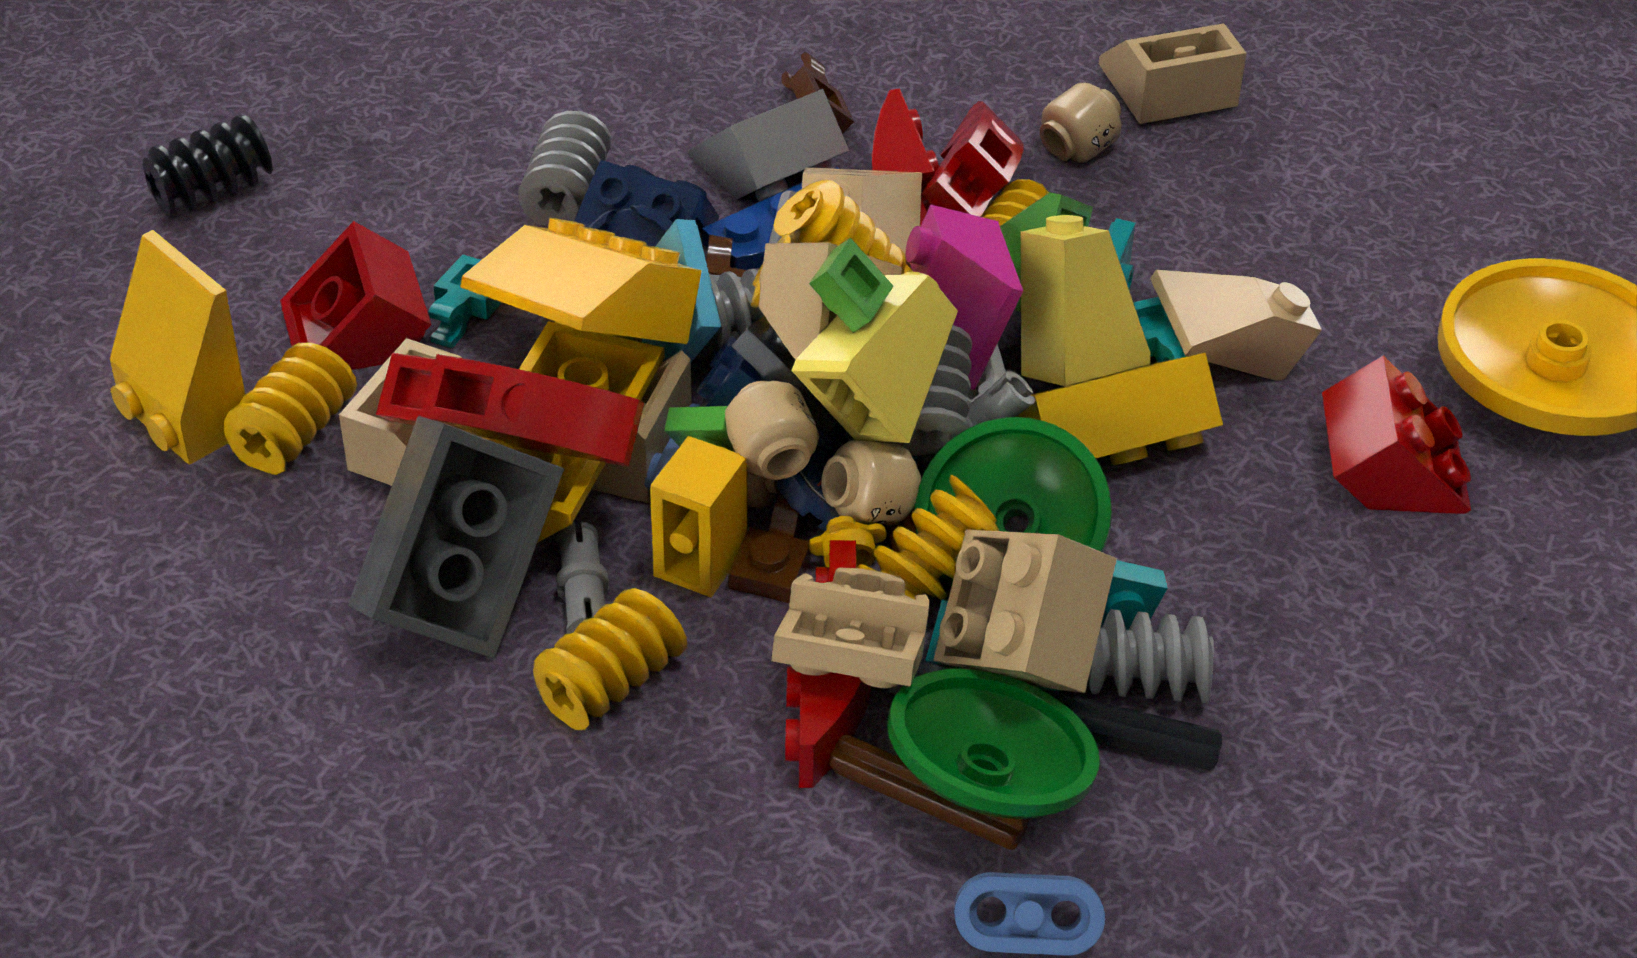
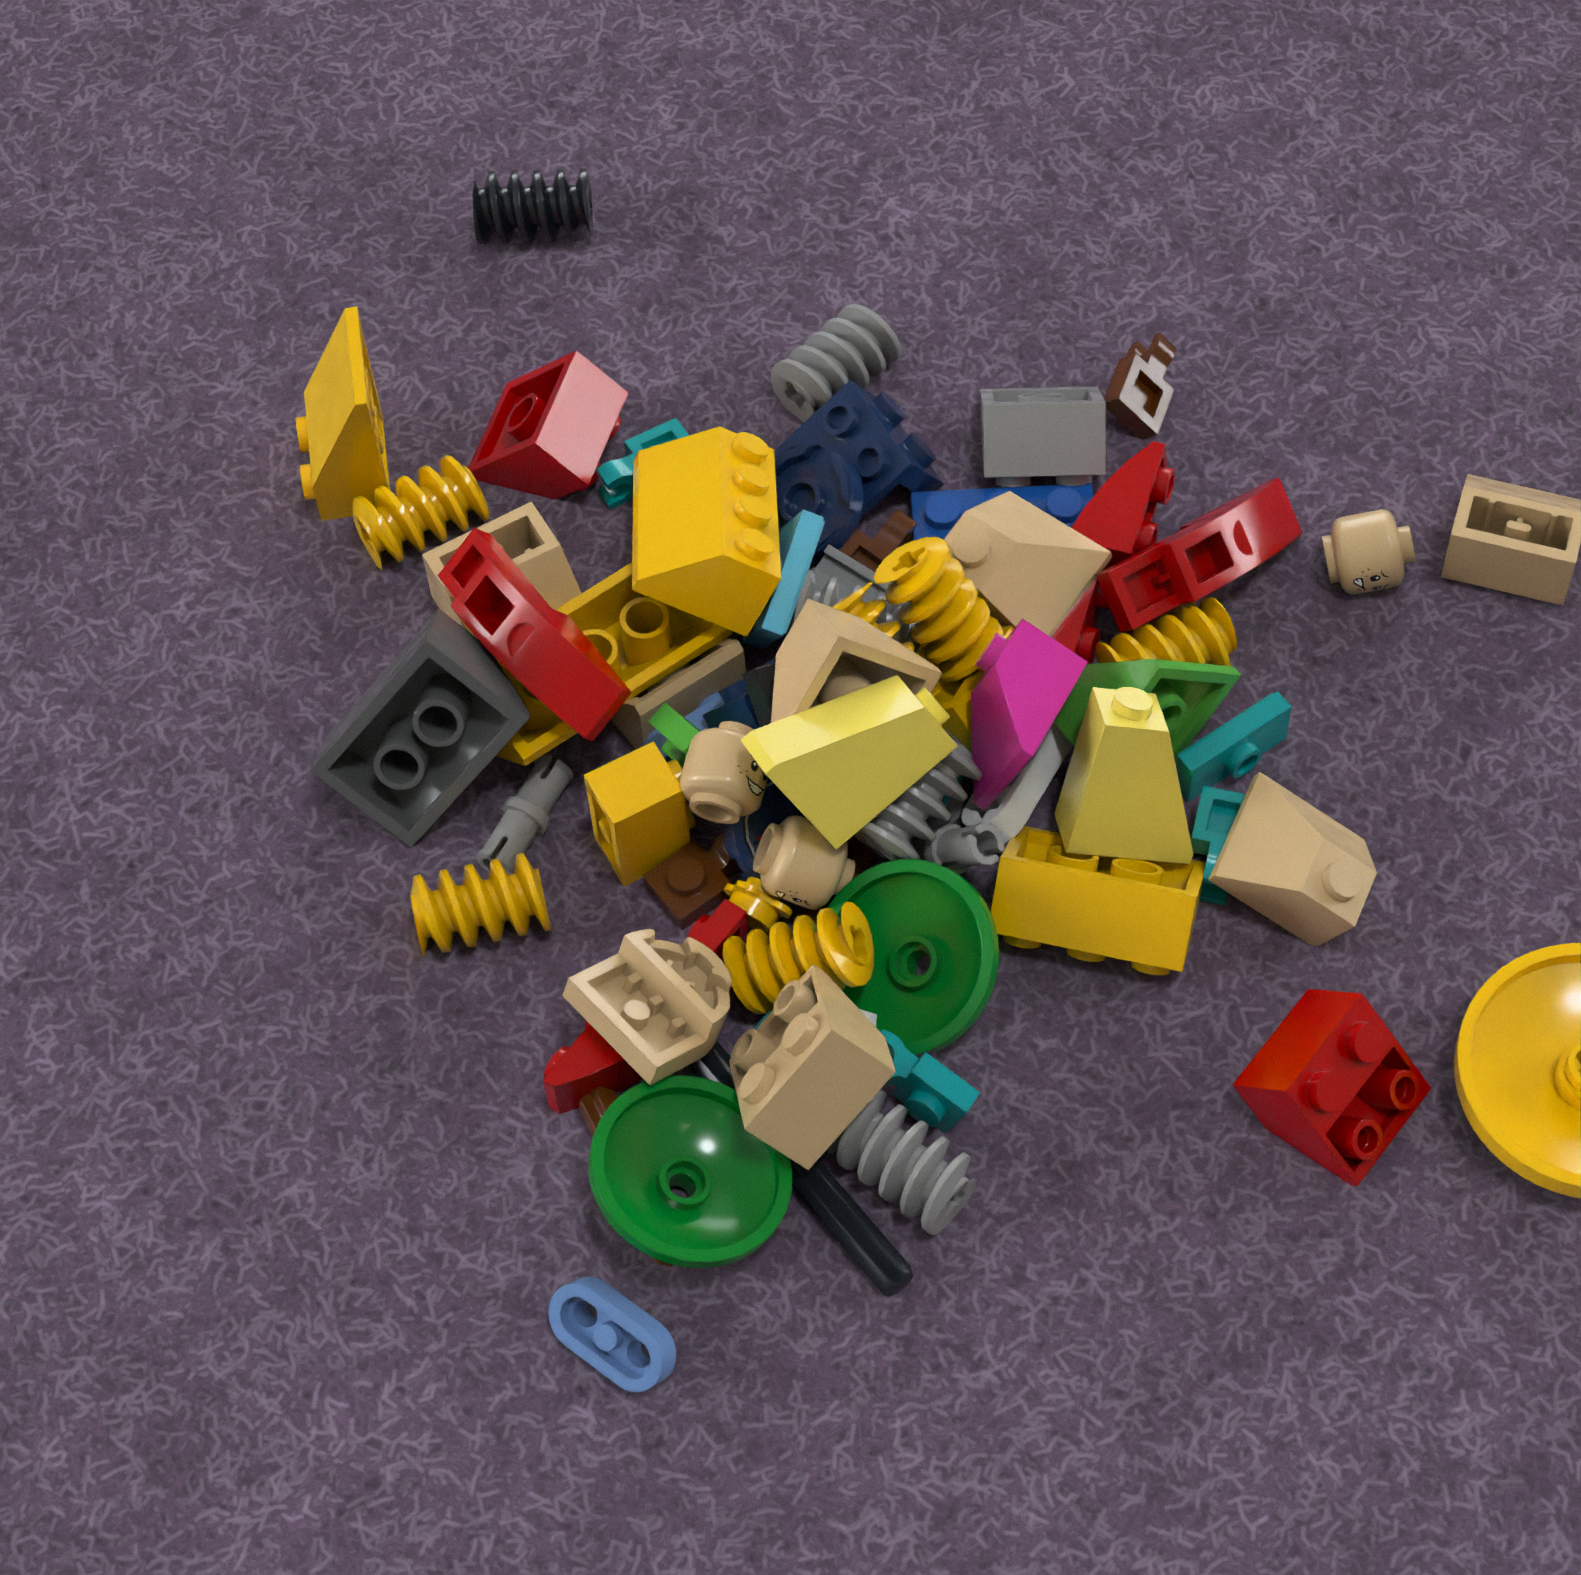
camera: 40 degrees right, 15 degrees up
(851, 285) = (831, 688): bright green plate -> none

